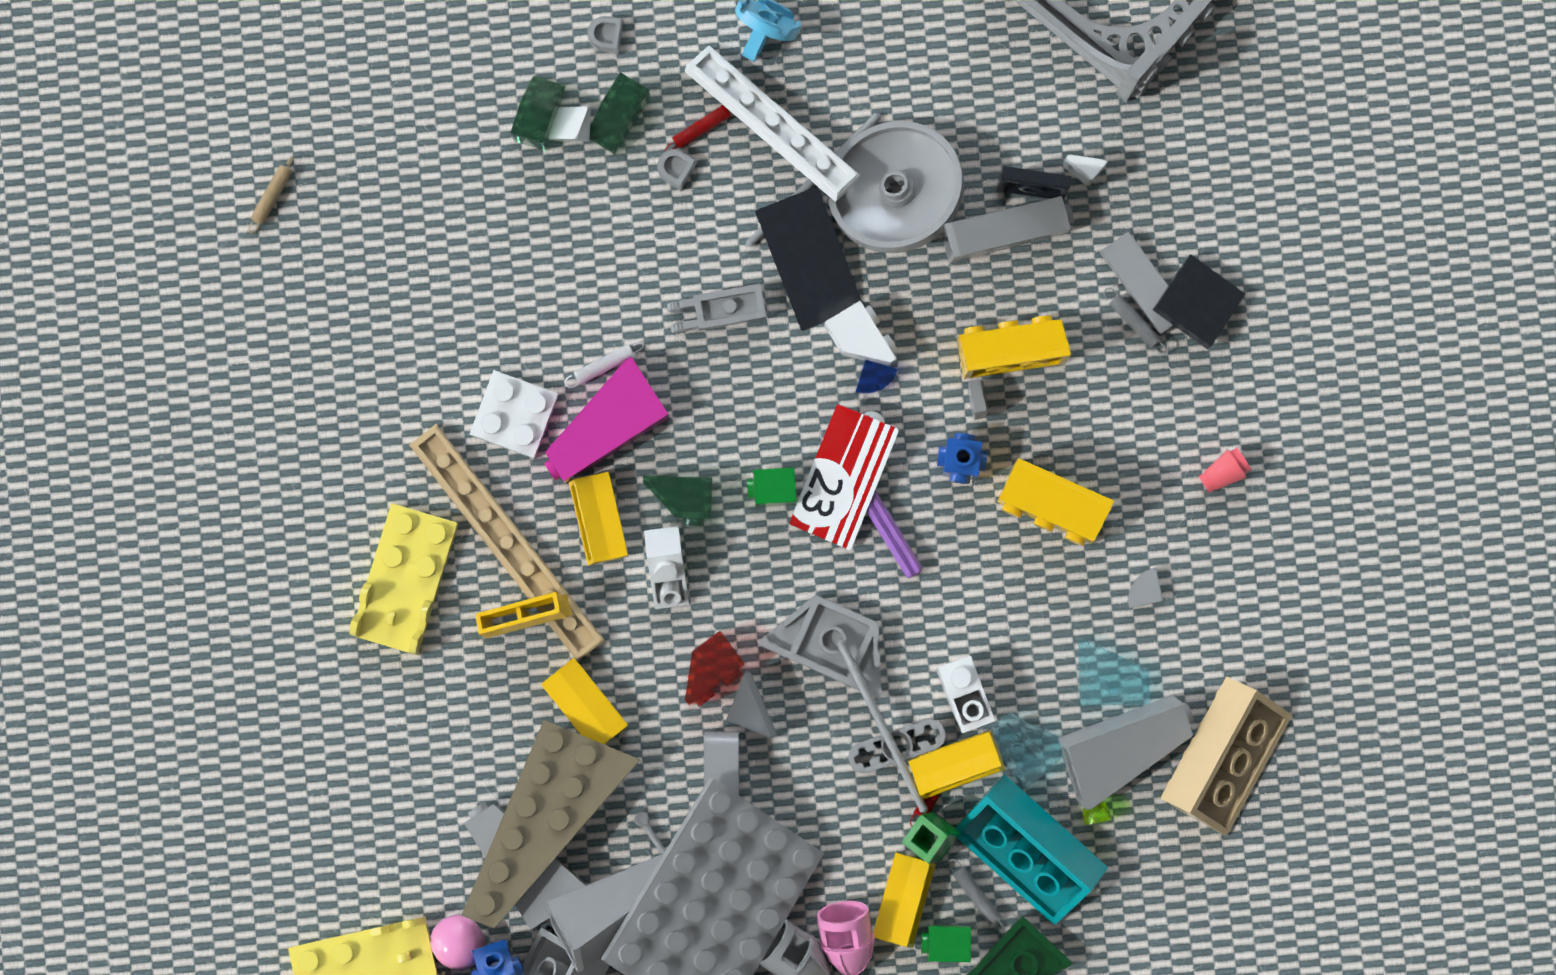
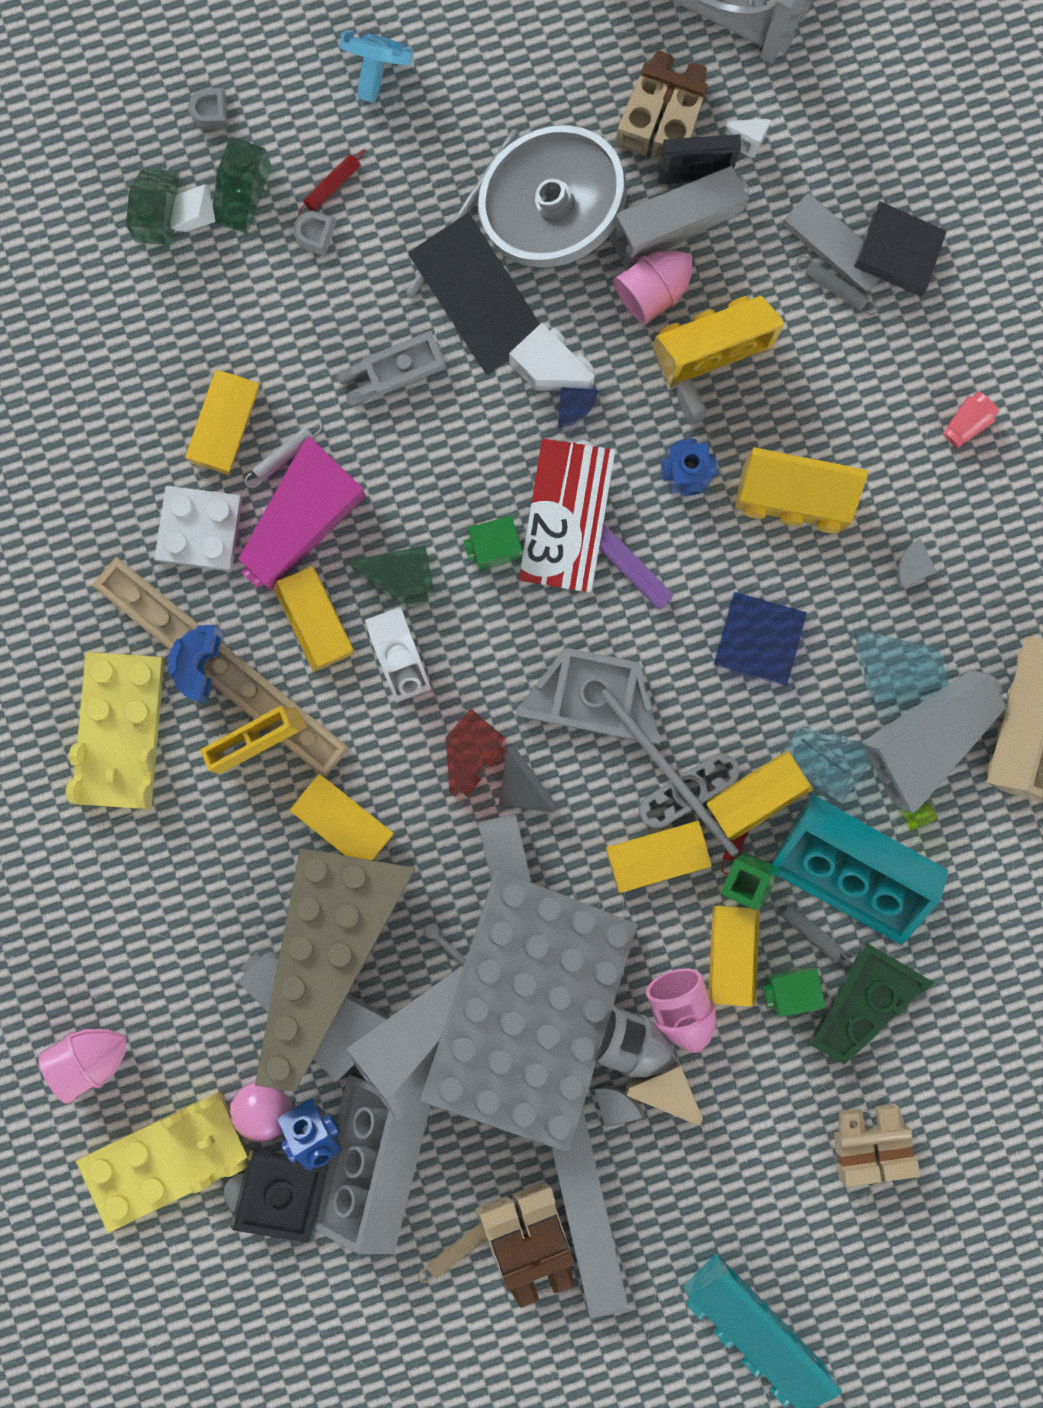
camera: 15 degrees left, 0 degrees up
(315, 862) = (81, 1062): none -> bright pink helmet
(482, 533) = (188, 661): none -> blue cylinder
(556, 324) = (222, 422): none -> yellow piece
(772, 123) = (406, 159): white tile -> none
(856, 798) = (658, 856): none -> yellow piece
(965, 694) = (751, 717): white slope -> none
(970, 285) = (654, 283): none -> bright pink helmet
(991, 625) = (759, 638): none -> clear blue tile
(1022, 117) = (662, 95): none -> tan hips

